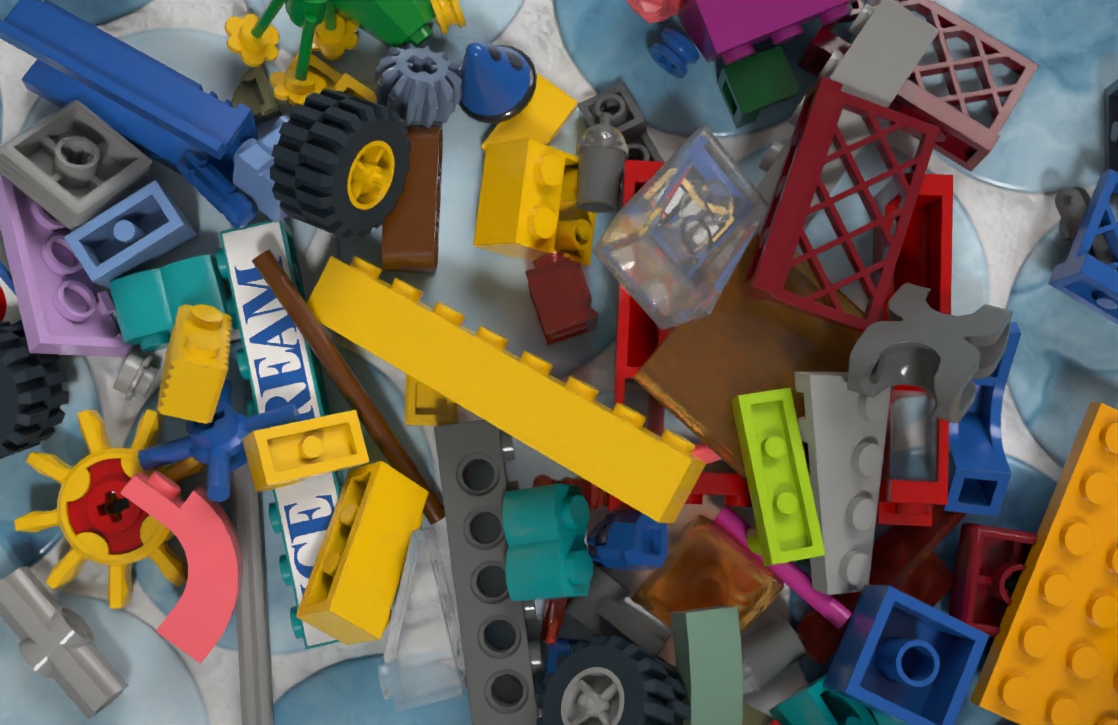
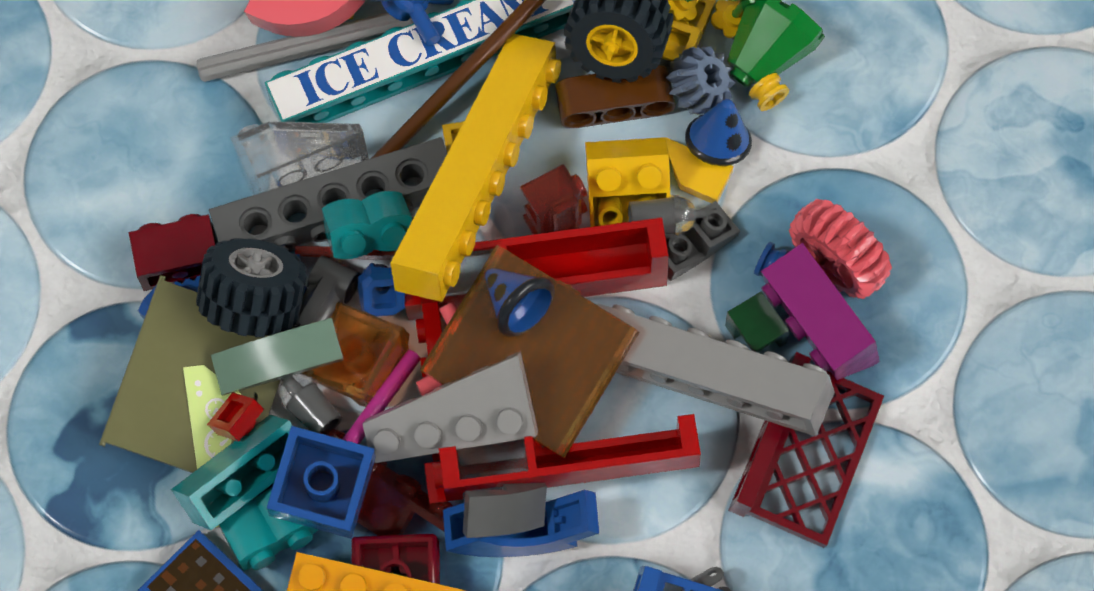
camera: 80 degrees right, 15 degrees down
(304, 450) = (407, 48): yellow plate -> none
(363, 554) = (328, 96): yellow brick -> none
(683, 232) = (616, 264): clear slope -> none
(718, 365) = (518, 300): none -> hat
(777, 478) = (441, 358): lime piece -> none
(801, 180) = (657, 333): dark red fence -> none
(929, 351) = (554, 443): dark grey piece -> none
(988, 444) = (504, 511): none -> dark grey slope

